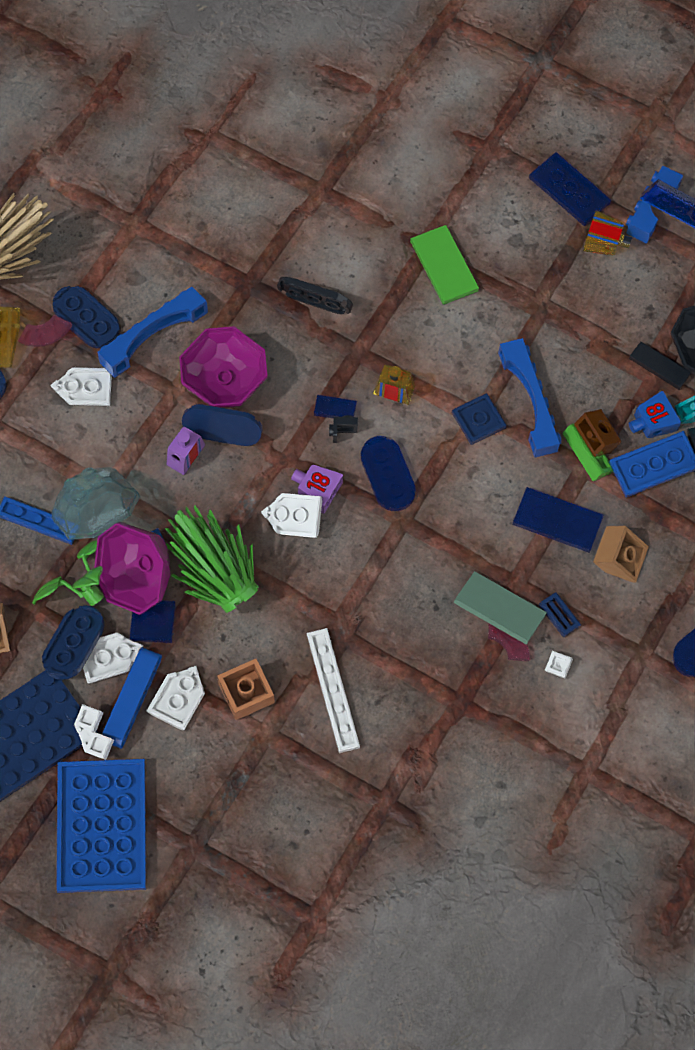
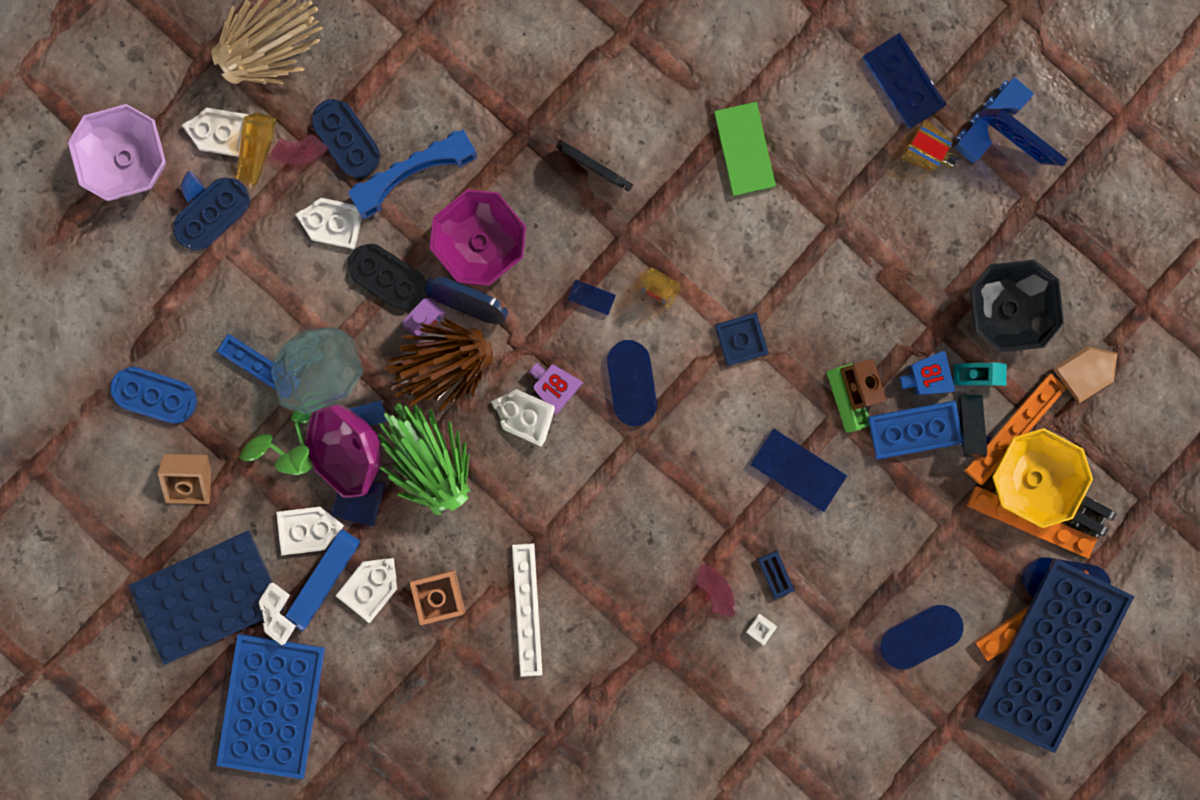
camera: 20 degrees right, 20 degrees up
(73, 642) = (272, 511): dark blue tile -> none
(143, 423) = (387, 276): none -> black tile
(222, 469) = (443, 361): none -> reddish brown plant
(343, 424) = (599, 320): black bracket -> none
(500, 607) = (715, 557): sand green tile -> none
(516, 358) = (797, 277): blue arch -> none
(621, 553) = (854, 522): medium nougat slope -> none
(659, 365) = (949, 314): black tile -> none

